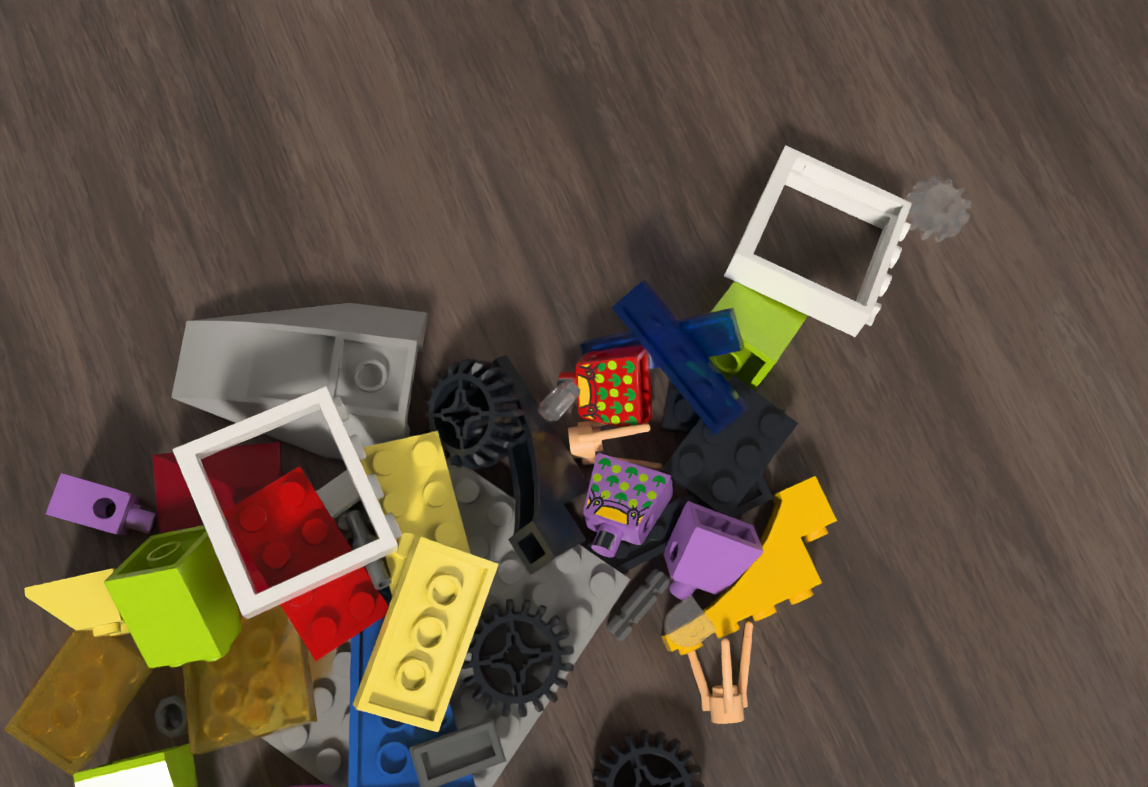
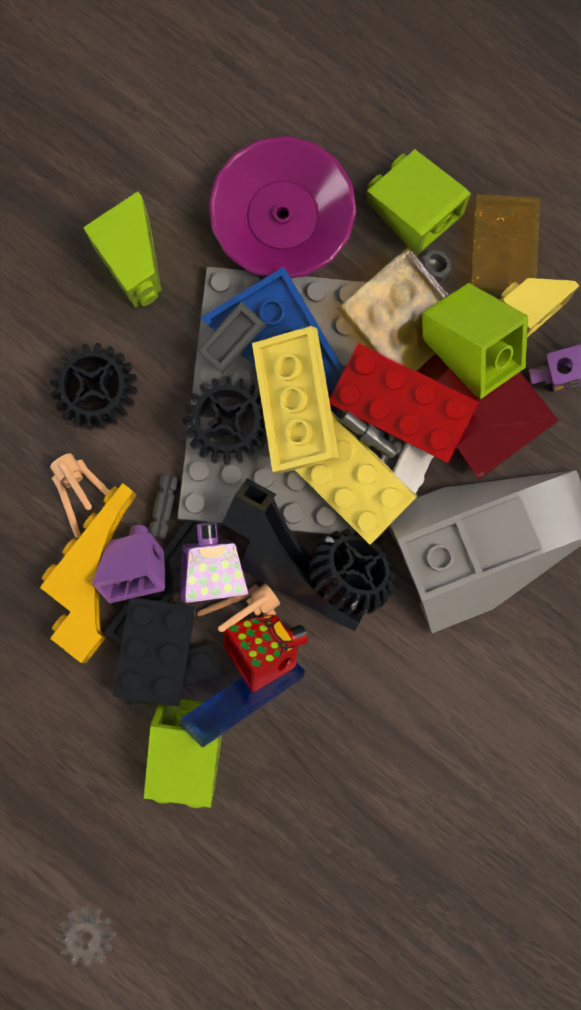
camera: 165 degrees right, 5 degrees up
(352, 452) = (469, 386): white window -> none
(558, 401) = (296, 614): clear tile -> none
(680, 357) = (223, 691): clear blue tile -> none
(687, 623) = (121, 506): clear tile -> none
(845, 194) = (172, 908): white window -> none

